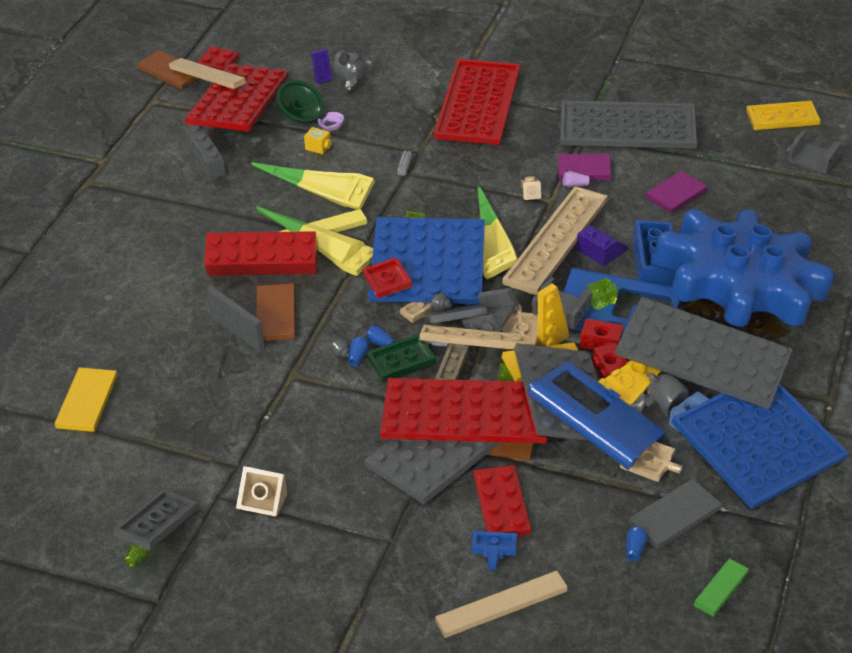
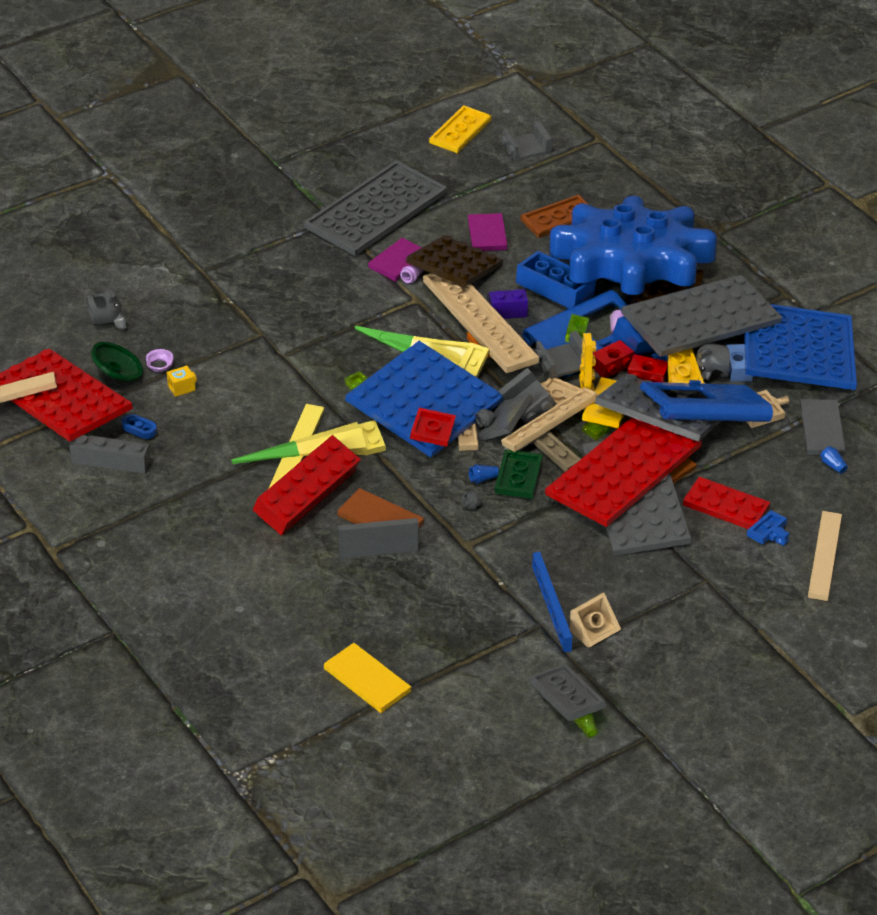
camera: 55 degrees left, 0 degrees up
(250, 149) = (139, 426): none -> blue plate
(264, 454) = (552, 602): none -> blue tile
(321, 65) = (81, 325): dark purple tile -> none
(341, 188) = (265, 400): light yellow plate -> none
(358, 349) = (485, 492): blue cone -> none
(404, 163) = (272, 349): light grey axle -> none
(477, 102) = (241, 266): red plate -> none
(531, 188) = (395, 297): tan bracket -> none
(611, 191) = (454, 261): none -> dark brown plate
(728, 209) = (545, 218): none -> dark orange tile

